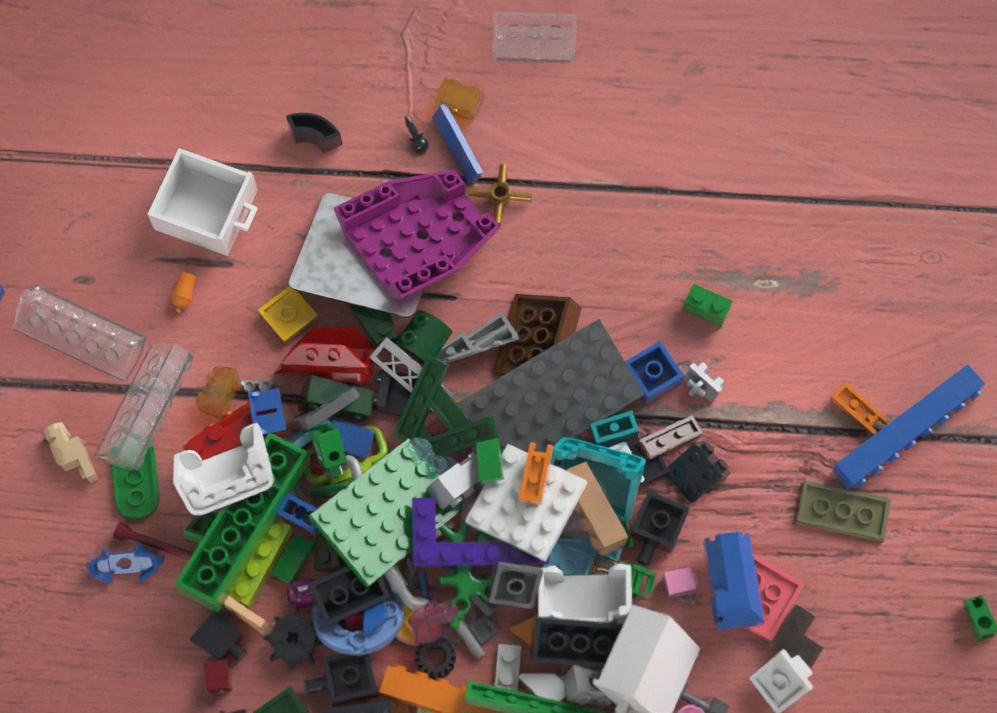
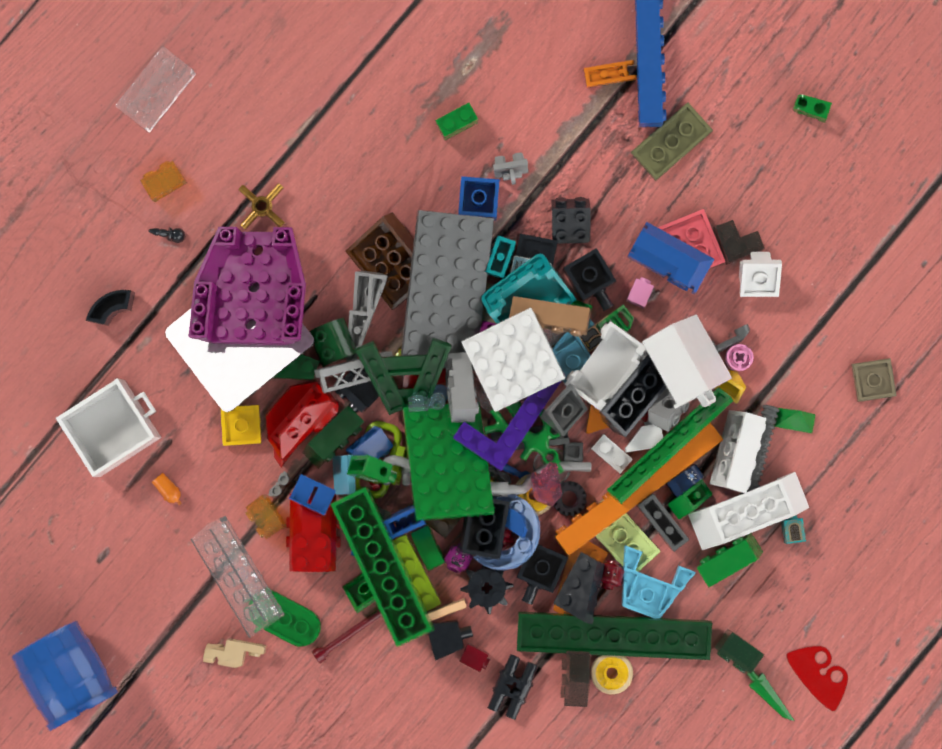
camera: 45 degrees left, 15 degrees up
(78, 332) = (143, 586): clear slope -> none
(142, 561) = (337, 682): blue piece -> none
(224, 477) = (341, 558): white windscreen -> none
(310, 419) = (341, 464): dark grey beam -> none
(326, 491) = (395, 495): green bar -> none
(457, 144) = (198, 208): blue tile -> none
(489, 461) = (465, 364): green slope -> none
(535, 475) = (501, 340): orange hinge -> none
(669, 438) = (534, 222): tile -> none

